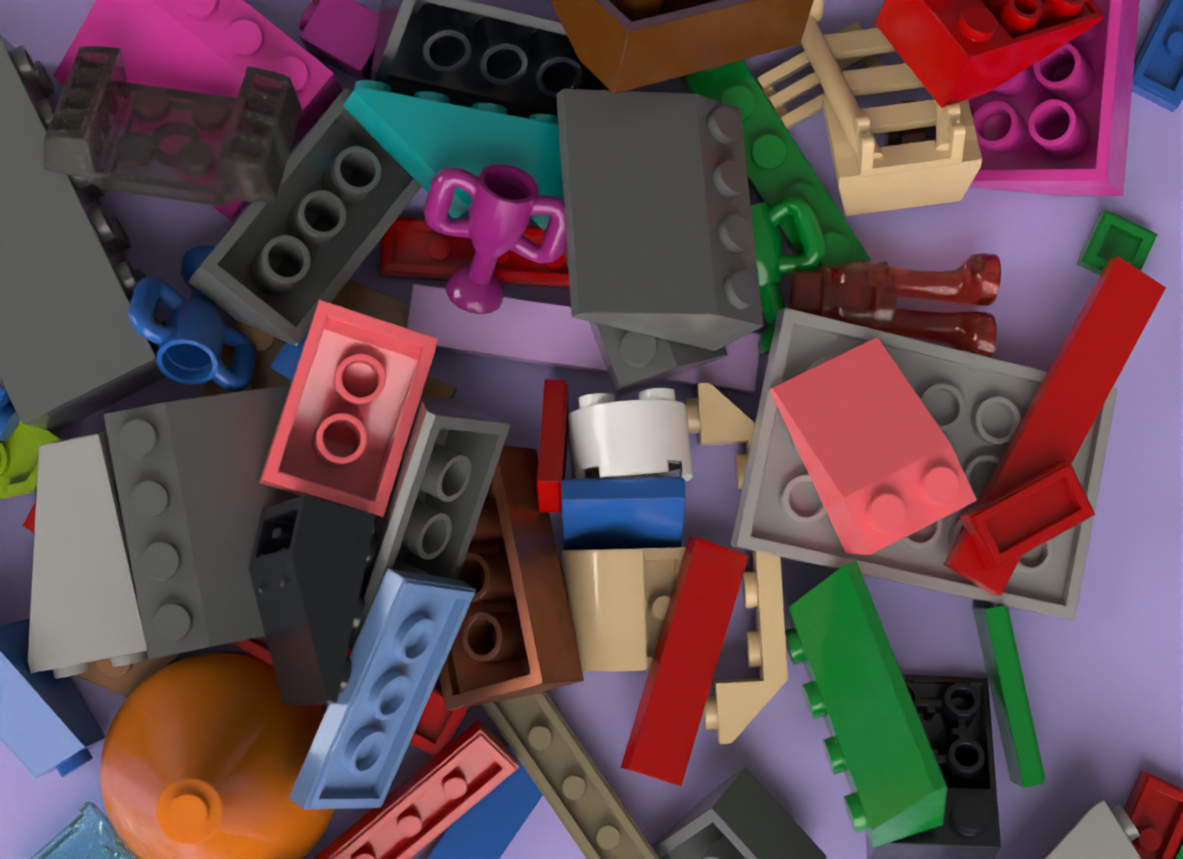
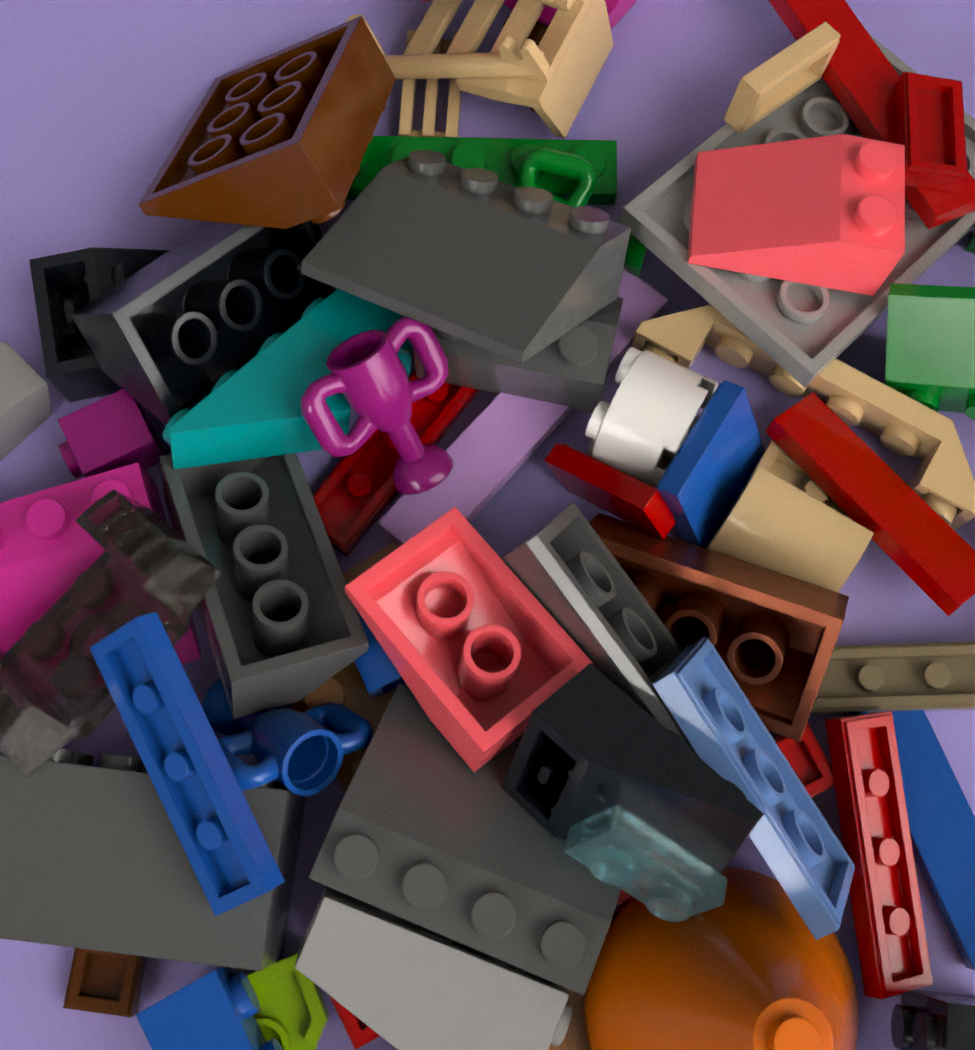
camera: 55 degrees left, 10 degrees down
(121, 274) = (186, 764): none -> blue plate
(263, 633) = (645, 865): none -> clear light blue plate
(869, 294) = (650, 141): clear red piece -> none
(994, 364) = (782, 77): none -> tan tile

